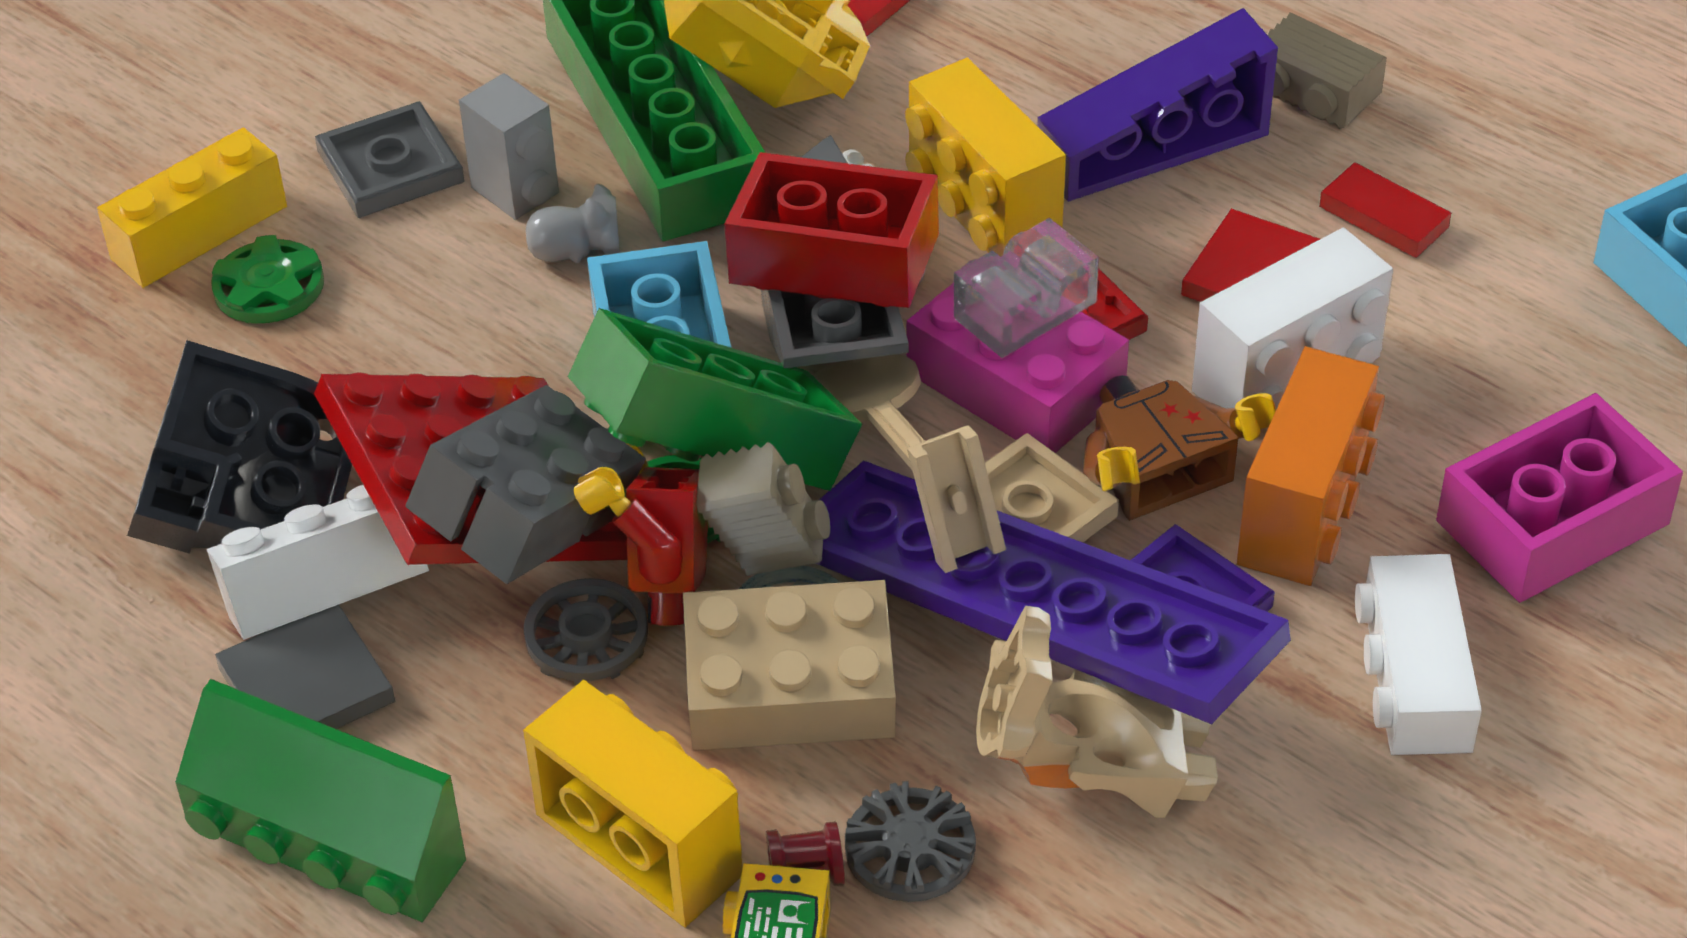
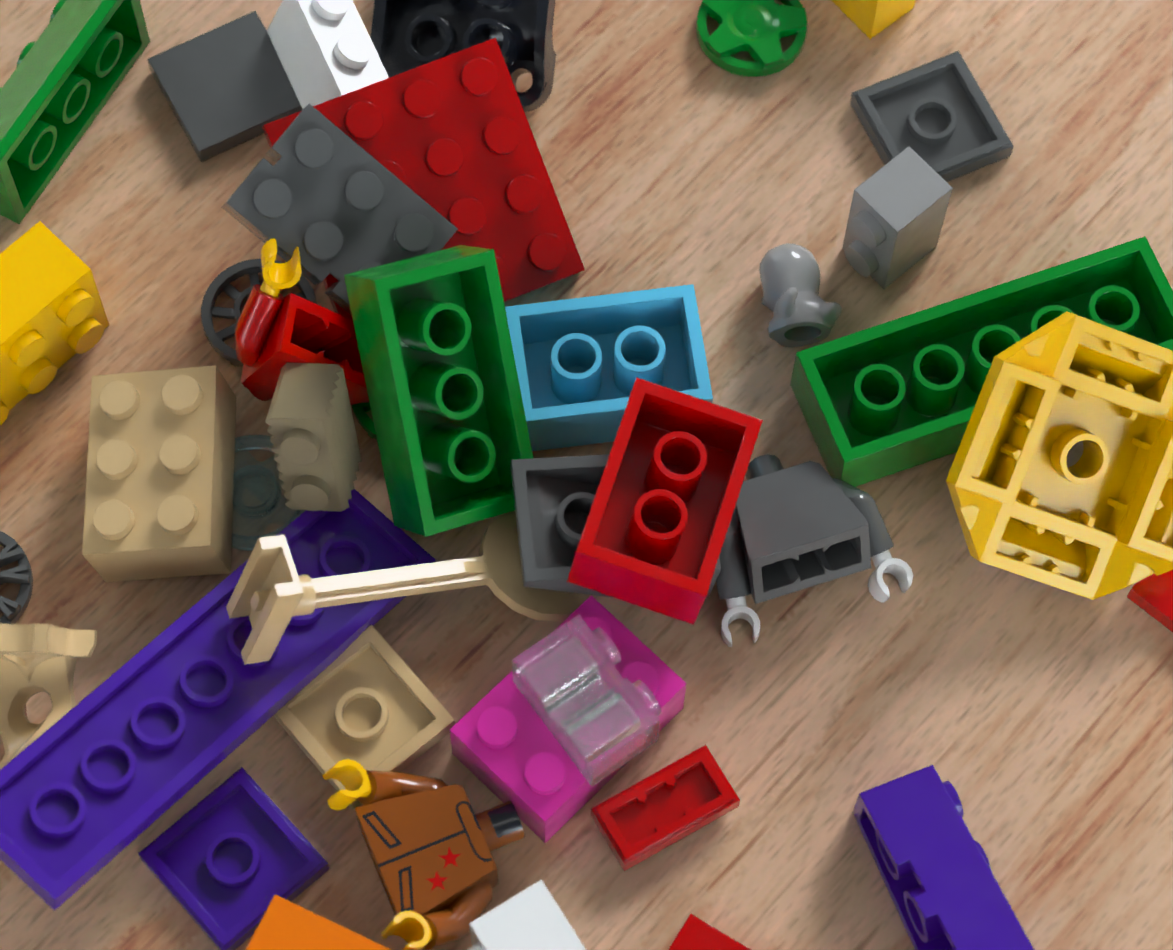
camera: 90 degrees right, 20 degrees up
(988, 155) = (855, 696): yellow brick -> none

